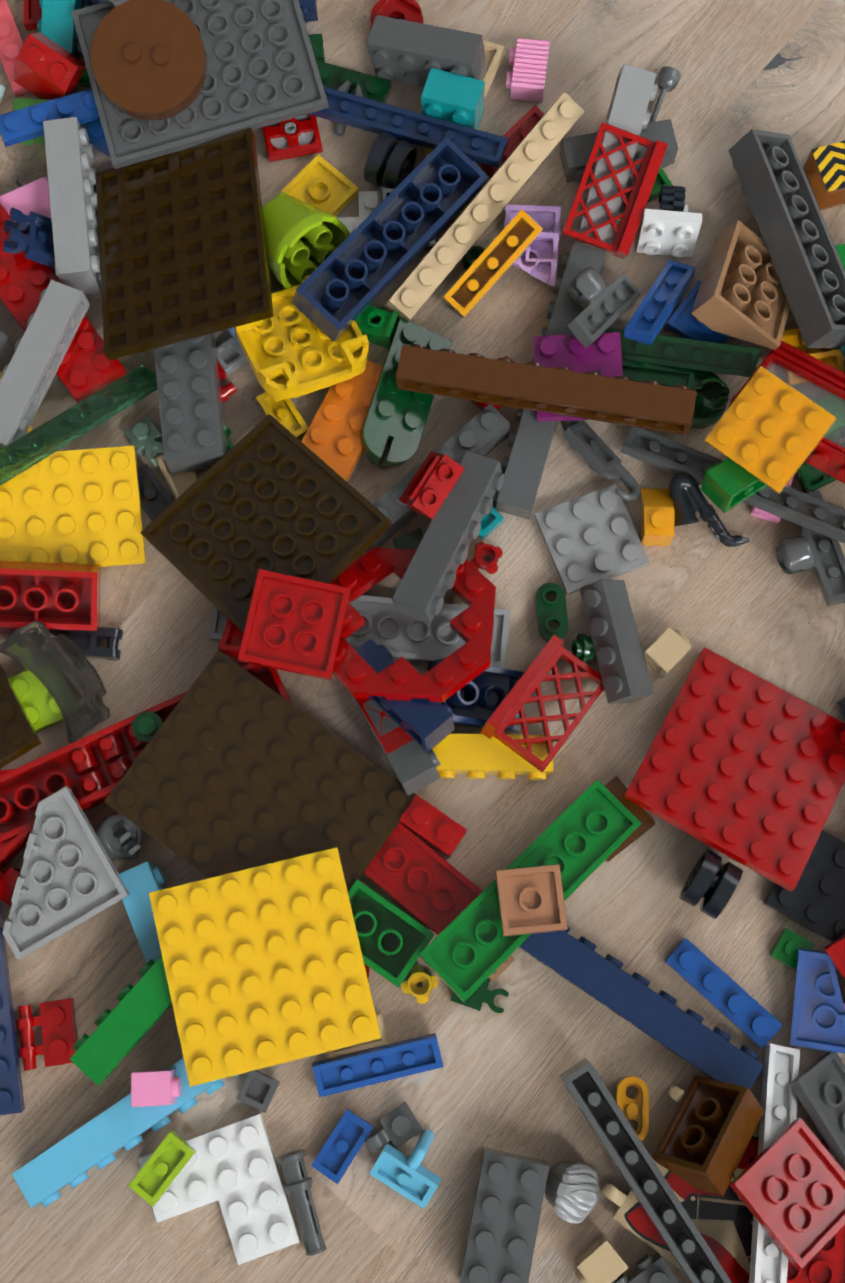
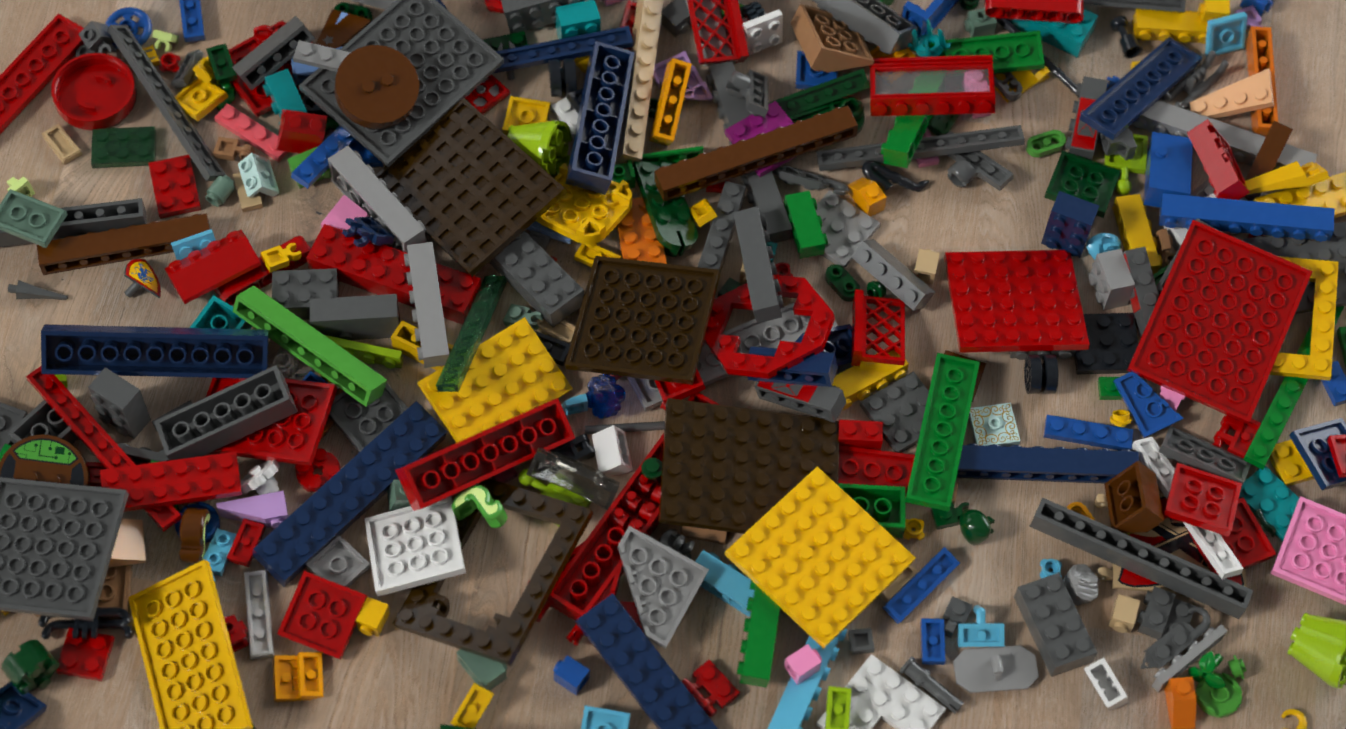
camera: 40 degrees left, 15 degrees down
(112, 587) = (575, 405): none -> medium azure slope
(136, 669) = (612, 451): none -> white brick
(166, 643) = (627, 427): none -> dark grey piece
(170, 597) = (605, 396): none -> clear blue plant
(294, 624) = (707, 354): red plate -> none
(395, 1230) = (995, 669): none -> light grey shield
(431, 484) = (727, 240): red window -> none
(438, 428) = (702, 212): none -> yellow plate
(459, 334) = (673, 155): none -> green slope
(490, 1033) = (975, 526): none -> dark green piece
(506, 820) = (900, 410): none -> dark grey plate
(531, 900) = (948, 432): nougat plate -> none
(549, 514) = (805, 224): none -> green brick
(551, 1153) = (1046, 564): none -> medium azure plate
(610, 911) = (994, 425): none -> light aqua plate
(659, 302) = (785, 73): blue plate -> none
(770, 429) = (904, 104): light orange plate -> none
(776, 1000) = (1120, 418): none -> yellow plate

